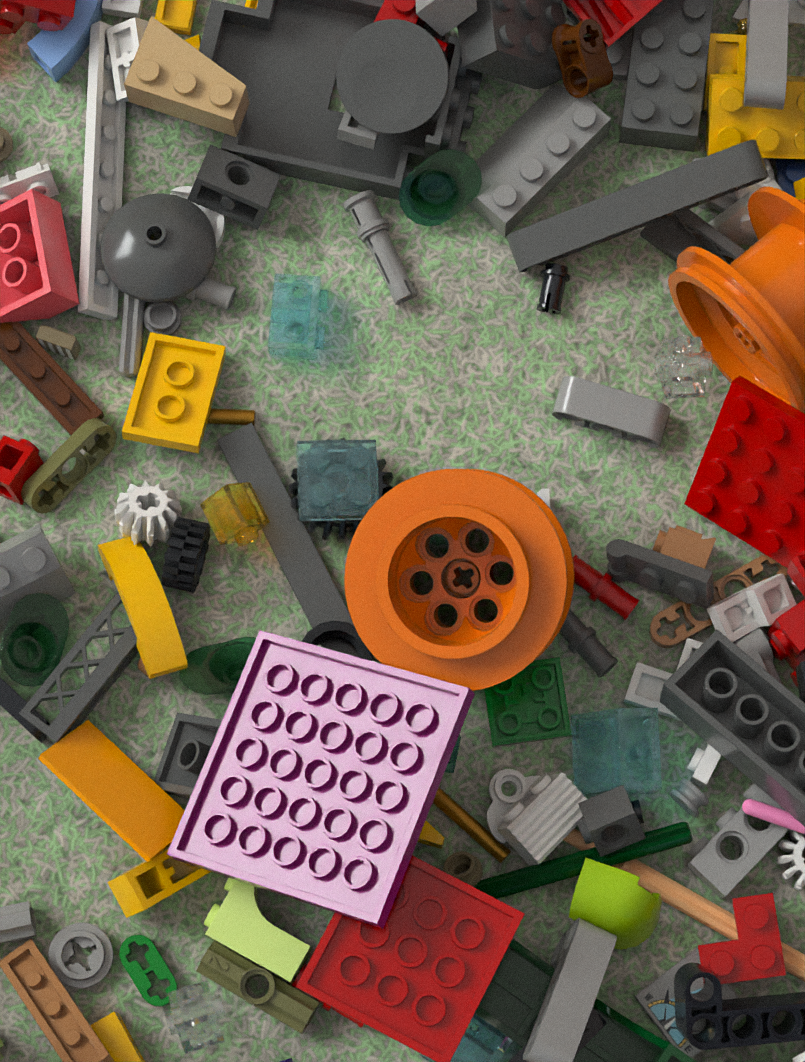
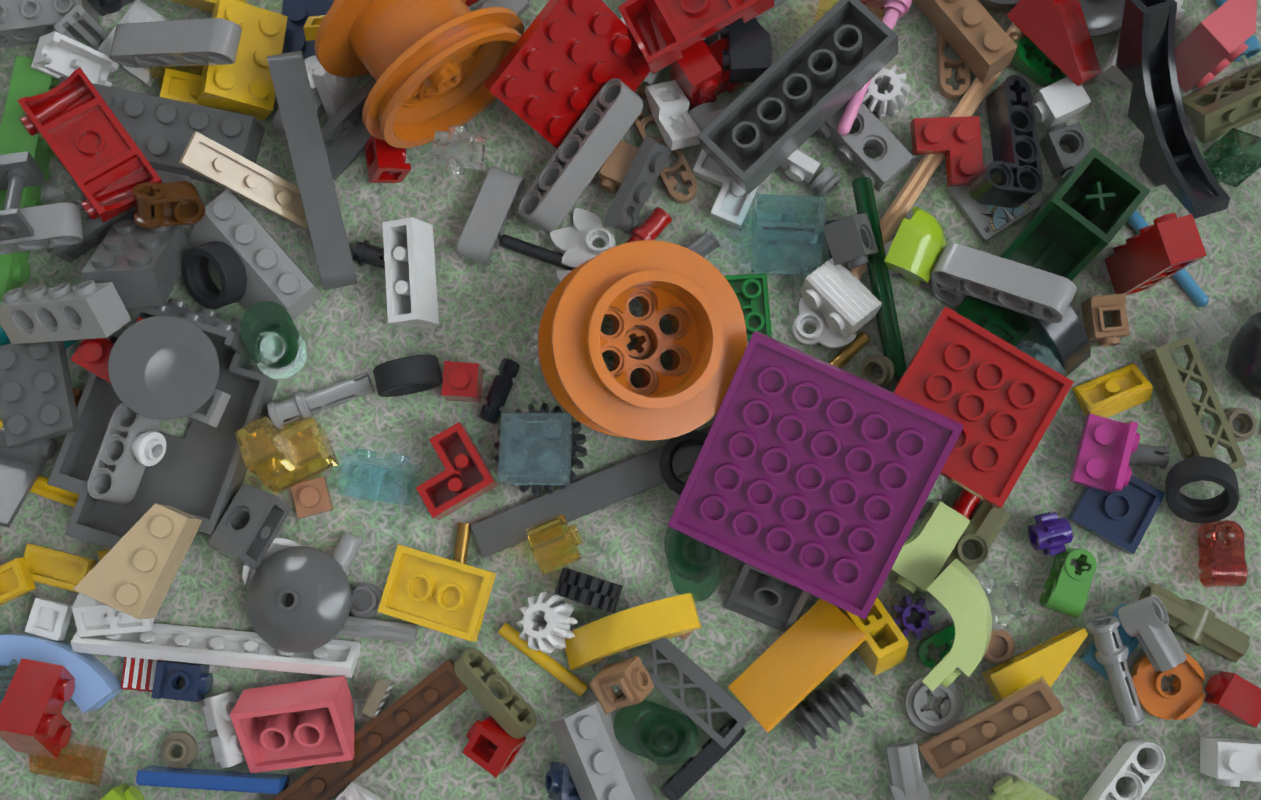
camera: 85 degrees left, 5 degrees up
(65, 834) = (830, 710): none -> dark grey piece
(69, 124) = (167, 680): none -> dark blue brick
(70, 97) = (138, 674): none -> tile
(87, 605) = (631, 677): none -> medium nougat window
(105, 519) = (544, 660): none -> yellow bar
(149, 1027) = (1000, 647): none -> medium nougat tile
(171, 979) = (971, 613): none -> yellowish green arch
(187, 928) = (920, 623): none -> dark purple gear
(272, 250) = (312, 497): none -> nougat plate
(297, 46) = (116, 470): none -> light grey beam
(308, 409) = (465, 473): none -> red brick
(310, 73) = (149, 448): none -> white plate
(313, 216) = (285, 456): none -> clear yellow brick
(407, 441) = (499, 391): none -> black axle
(411, 397) = (462, 381): none -> red brick
(413, 336) = (407, 375): none -> black tyre
(518, 130) = (229, 268): none -> black tyre
(532, 327) = (410, 273): none -> white brick
(573, 475) = (534, 251): none -> black bar
(592, 515) = (579, 240): none -> white plate
(621, 132) = (244, 178): none -> tan plate
(656, 289) = (385, 162): none -> red brick
(687, 503) = (580, 155): none -> light grey beam

